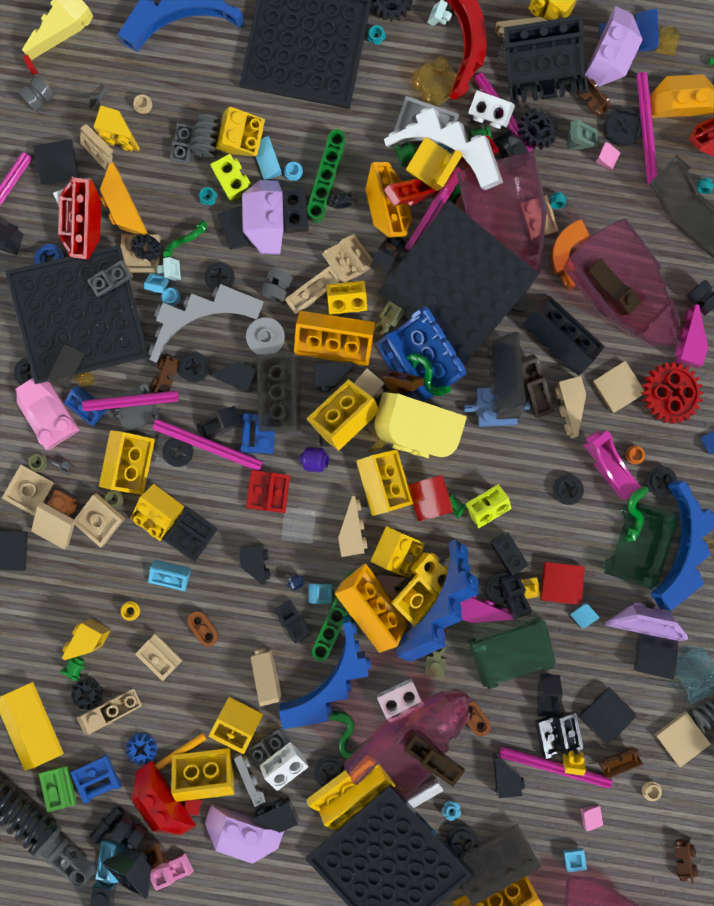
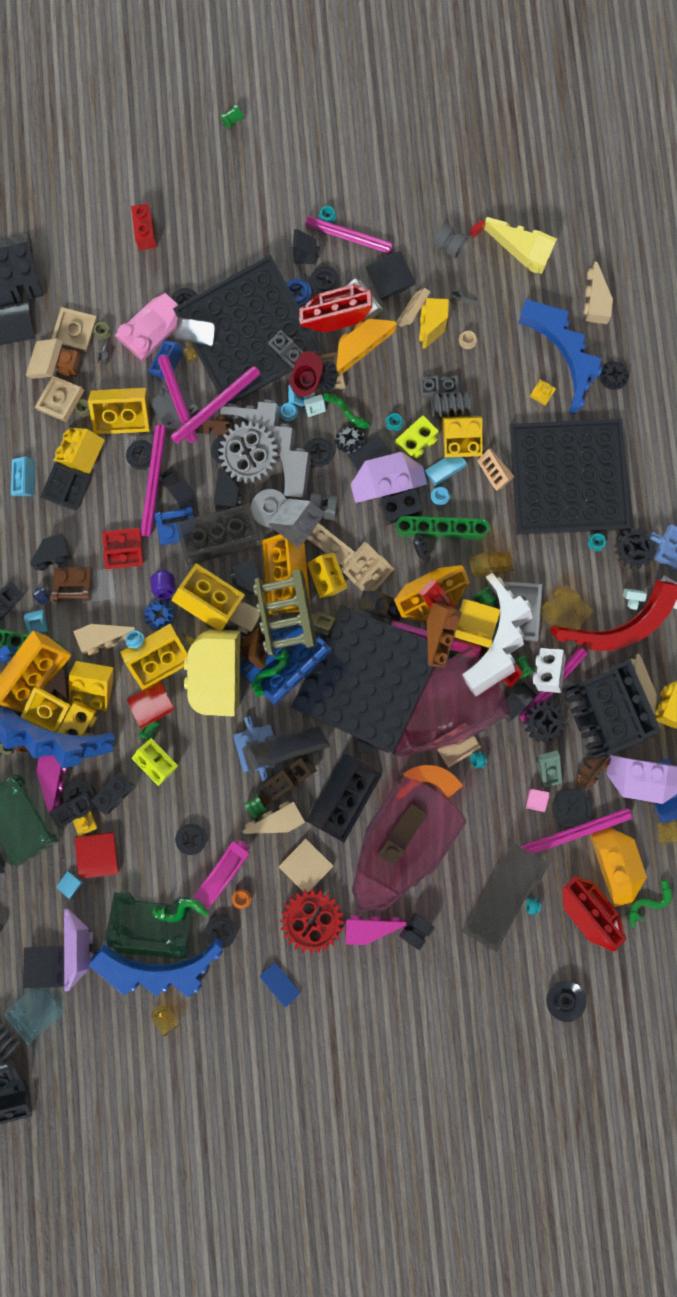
camera: 80 degrees right, 5 degrees down
(35, 230) = (320, 274): none -> black gear
(140, 265) = (306, 374): none -> dark red piece
(147, 363) = (215, 405): none -> dark pink axle
(201, 325) = (263, 444): none -> light grey gear
(214, 46) = (542, 392): none -> yellow tile
(221, 240) = (351, 445): none -> black gear
(285, 102) = (506, 475): none -> light nougat slope
(285, 548) = (72, 577): none -> reddish brown plate
(287, 310) = (296, 520): none -> flat silver slope
(352, 471) = (158, 605): none -> blue gear
(365, 498) = (134, 639): none -> medium azure plate
(373, 139) = (491, 562): none -> clear yellow slope
(388, 328) = (303, 619): none -> olive fence
(433, 195) = (440, 632): none -> dark orange slope
(553, 420) = (255, 807): none -> green wheel

